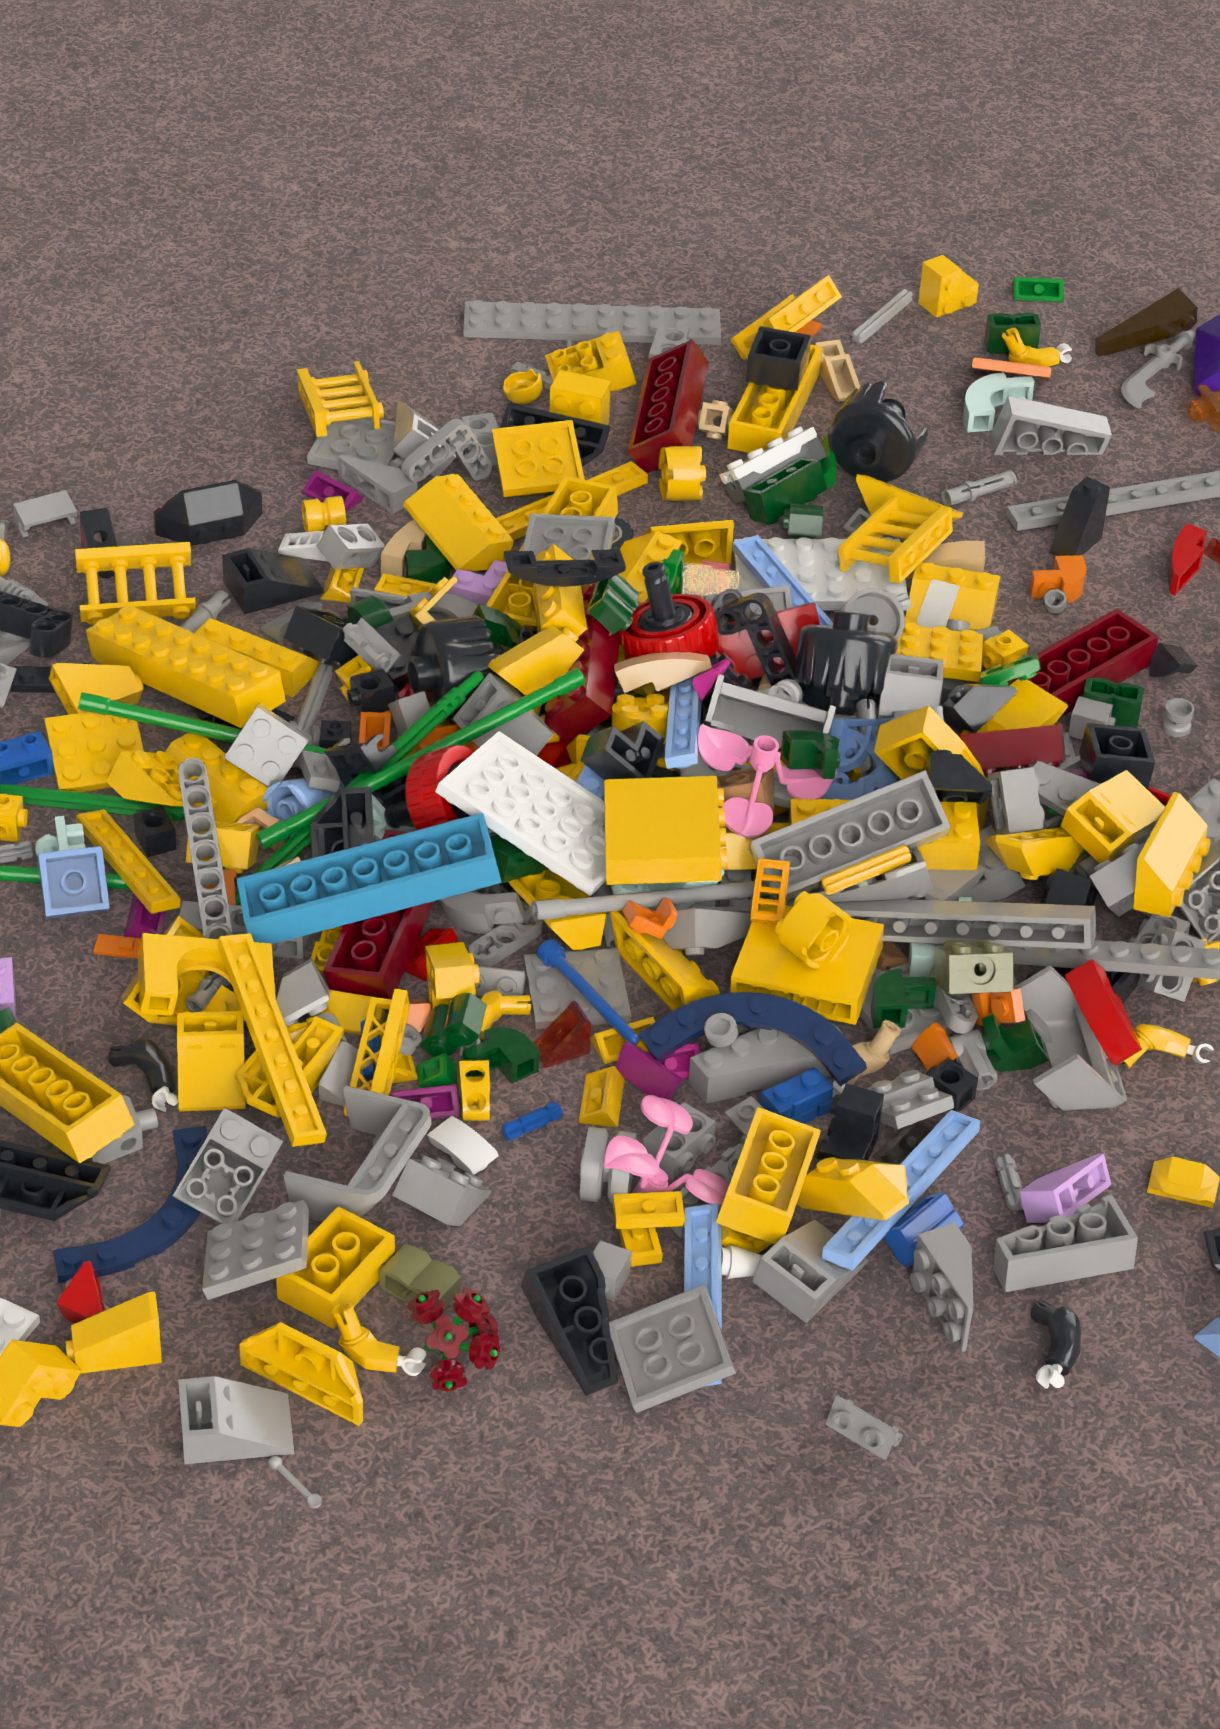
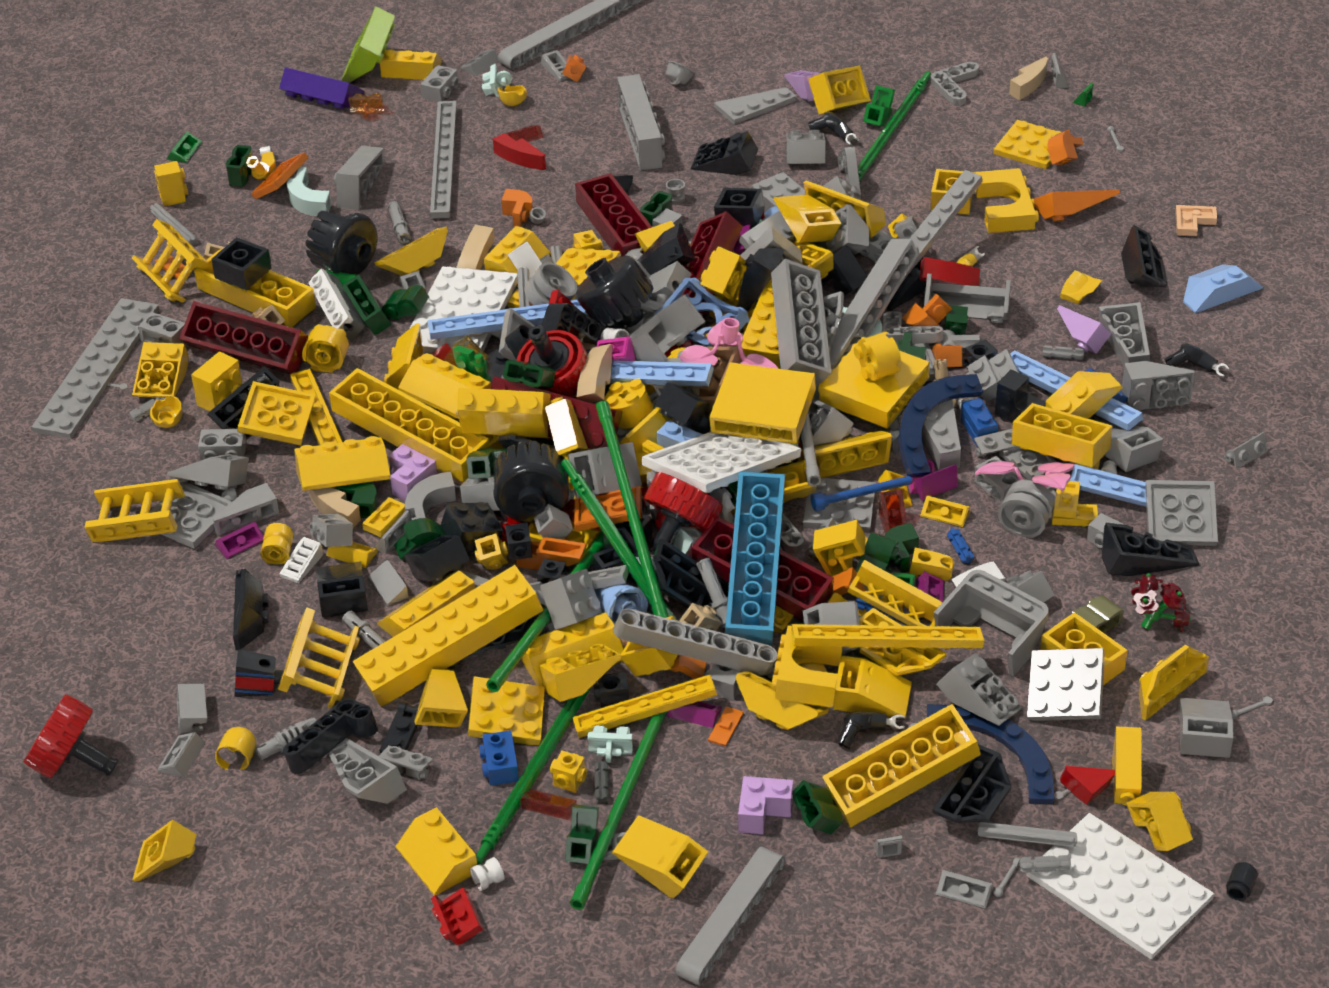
camera: 70 degrees left, 0 degrees up
(73, 882) = (670, 733): medium blue brick -> none
(359, 757) = (613, 545): black hinge -> none
(368, 1352) = (1152, 653): yellow arm -> none
(370, 645) = (480, 526): light grey hinge -> none
(419, 611) = (437, 488): yellow bracket -> none
(456, 446) = (254, 457): light grey beam -> none
(565, 573) = (505, 376): black slope -> none
(570, 533) = (420, 402): light grey plate -> none
(645, 920) = (827, 432): orange bracket -> none
(721, 1030) = (930, 429): light grey tile -> none
(766, 916) = (843, 375): light orange slope -> none
(811, 751) = (709, 319): dark green brick -> none
(866, 869) = (831, 322): yellow axle -> none
(905, 555) = (469, 243): yellow fence -> none
(973, 968) = (915, 307): brick -> none
(1023, 668) = (637, 232): green plate -> none
(1082, 519) = (471, 179): black slope -> none
(1135, 388) = (297, 113): light grey sword -> none
(1156, 322) = (269, 99): dark brown wedge -> none

